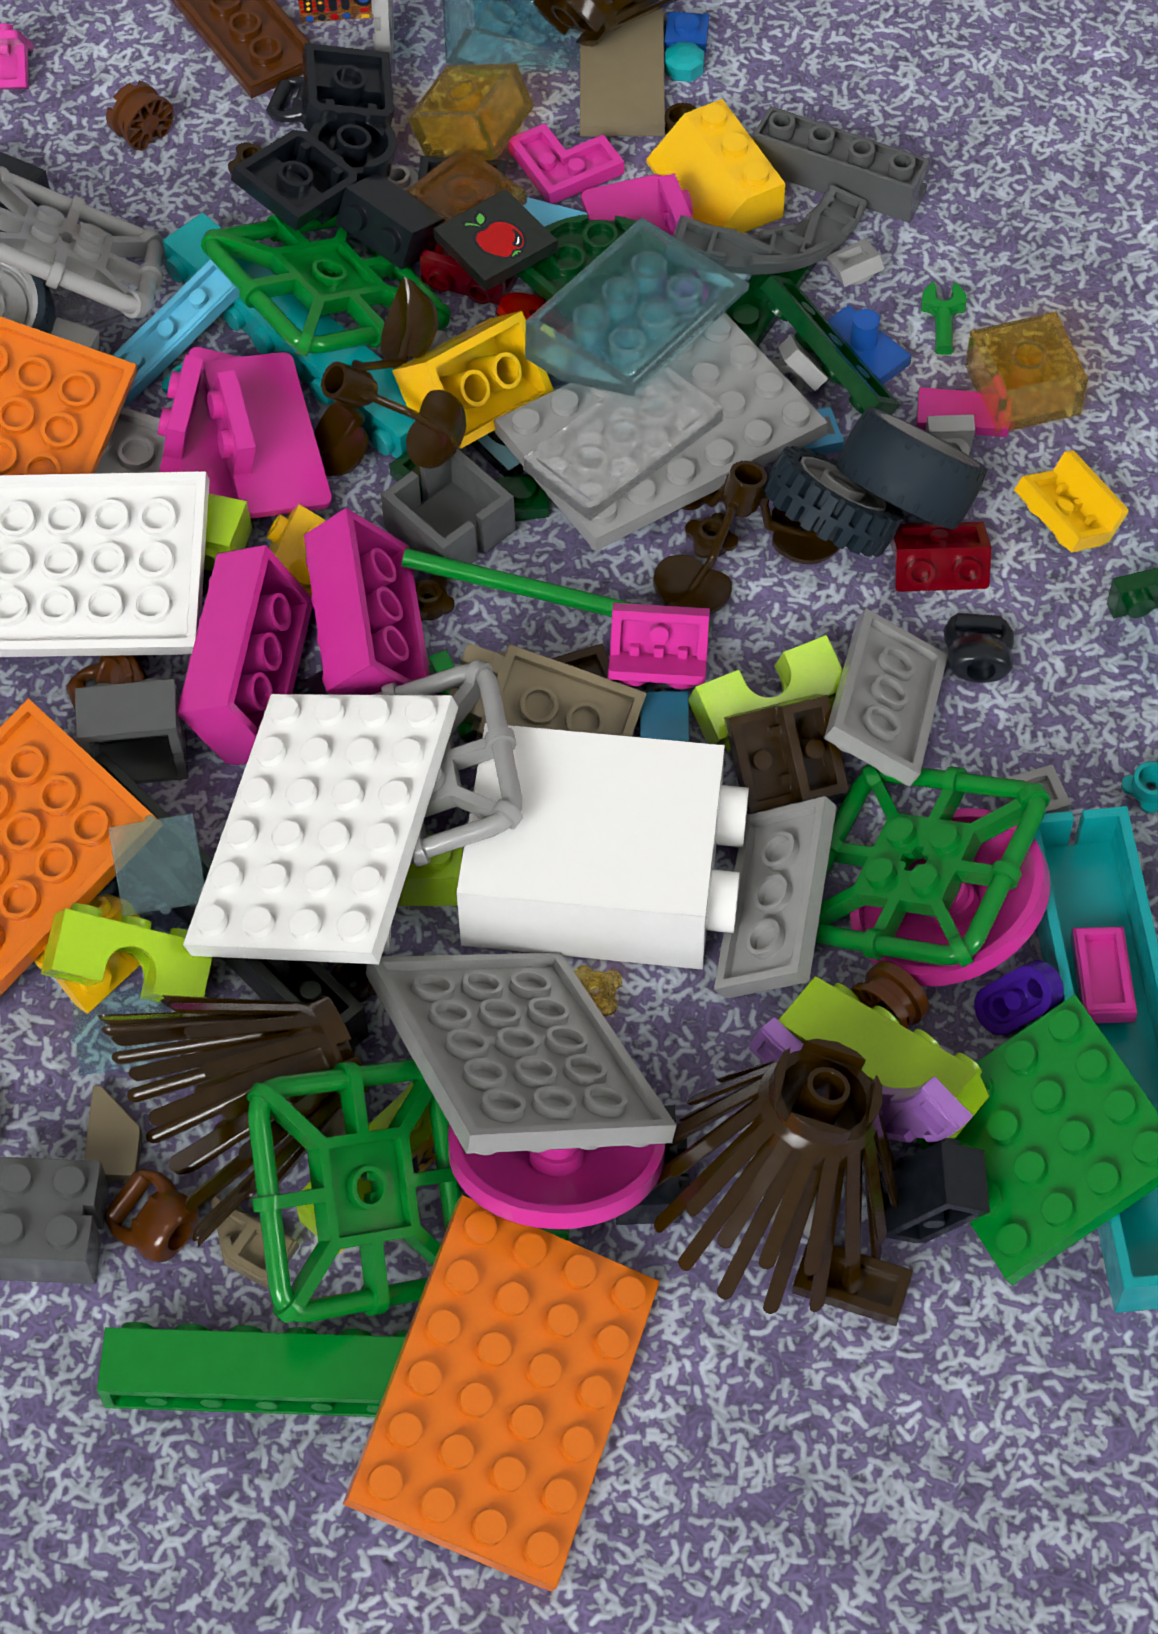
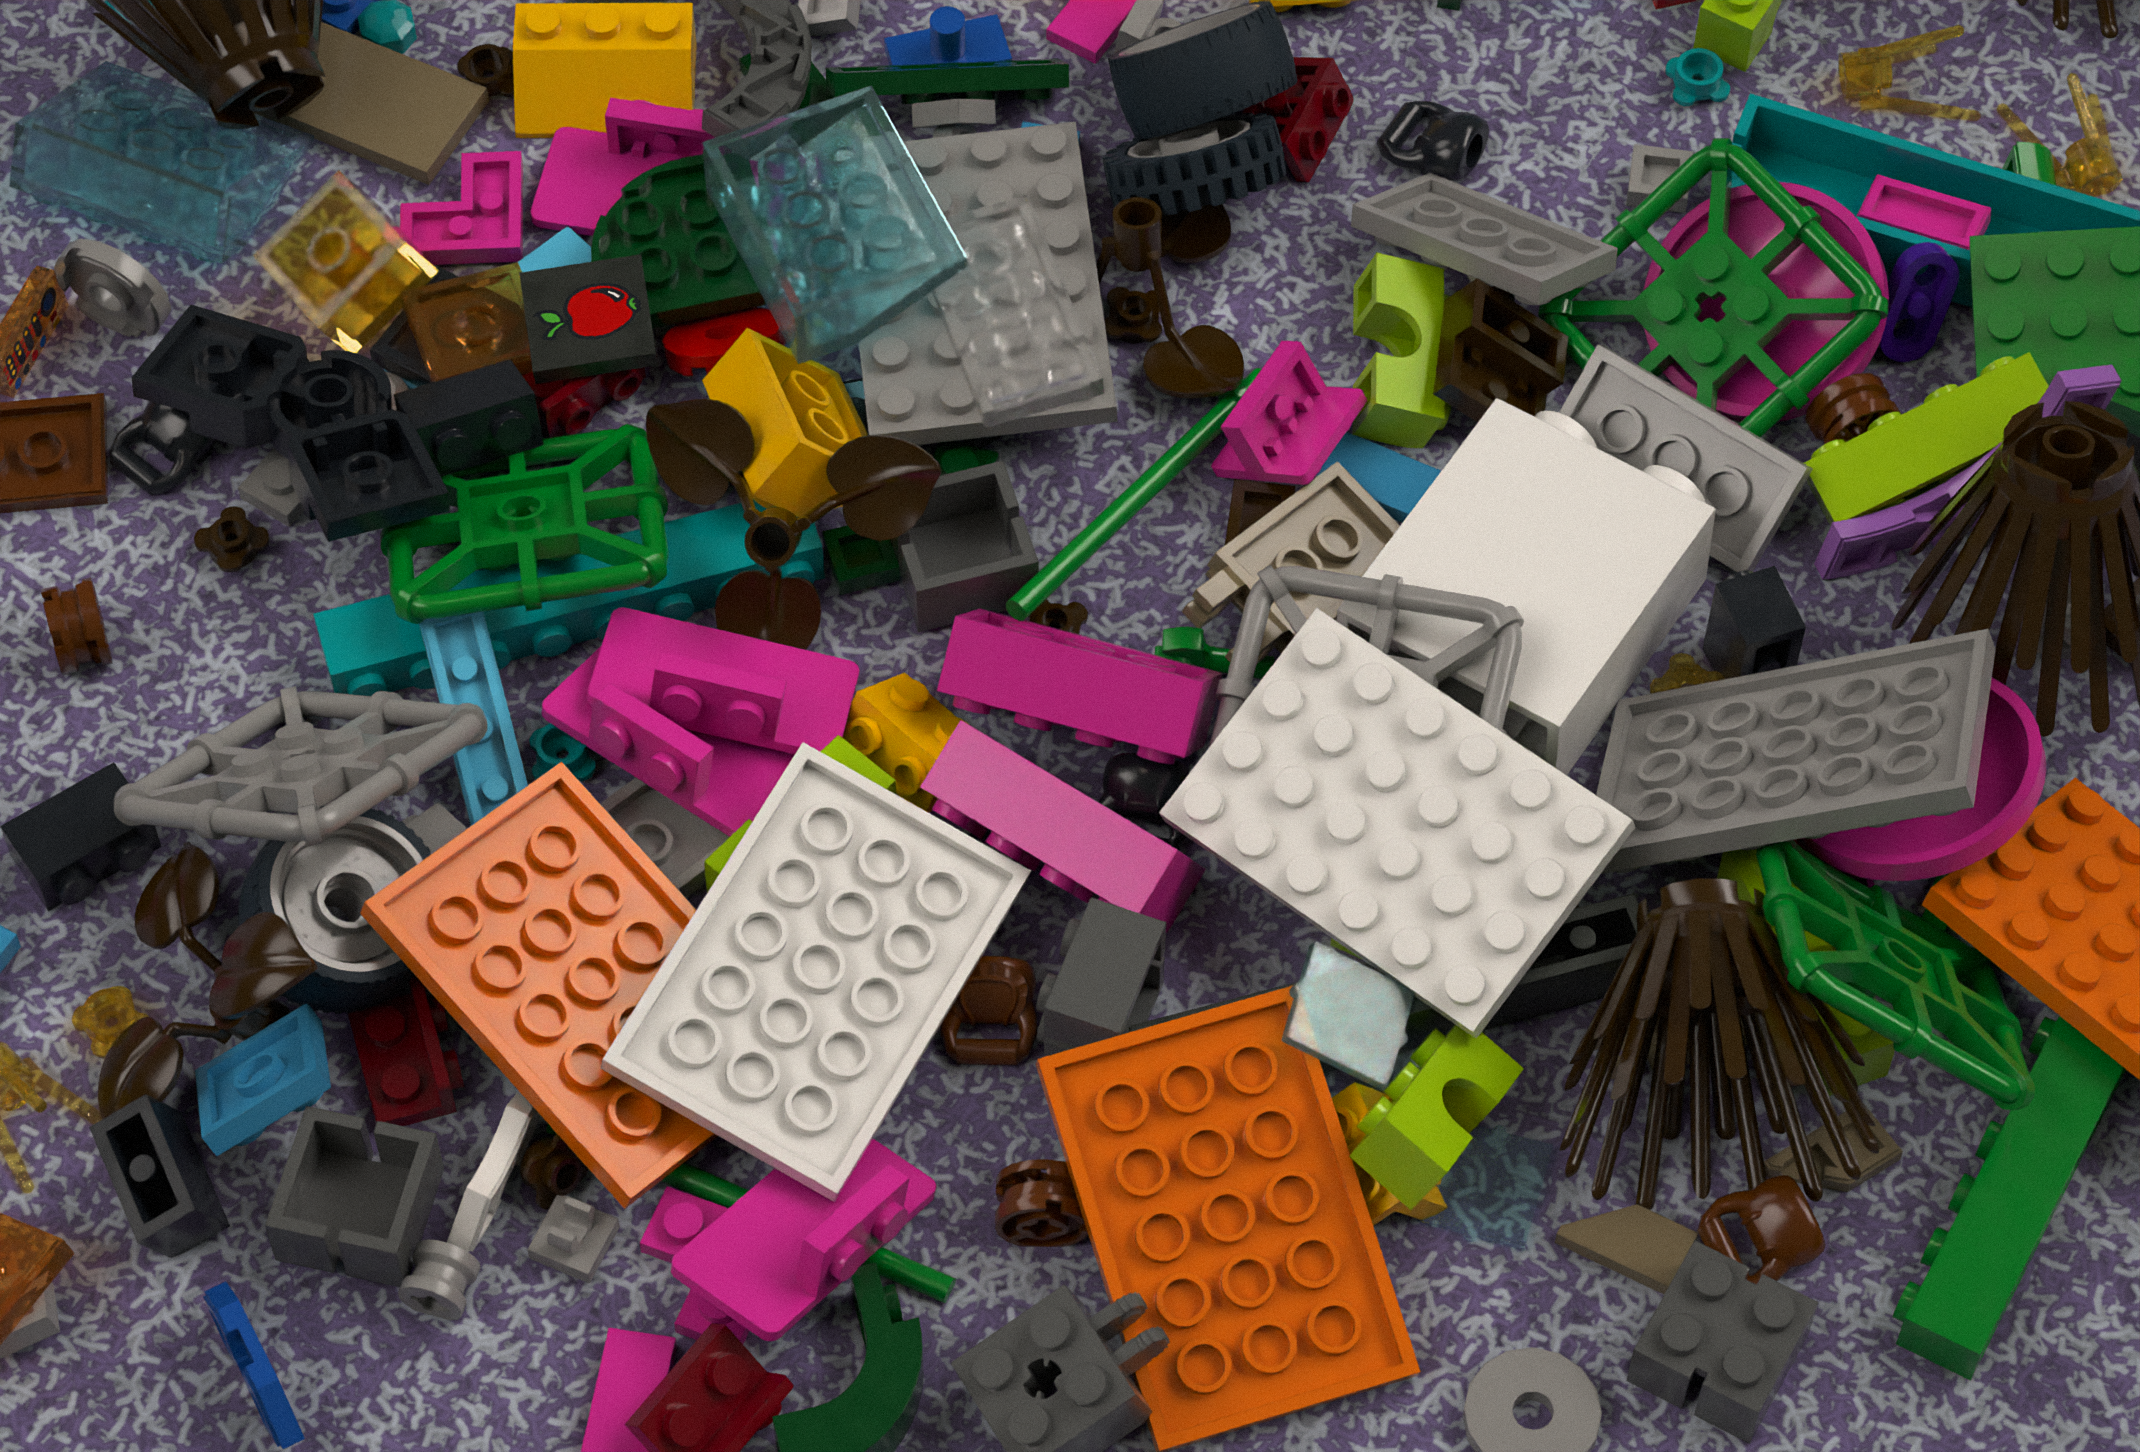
camera: 65 degrees left, 0 degrees up
(642, 1001) = (1752, 625): none -> black brick

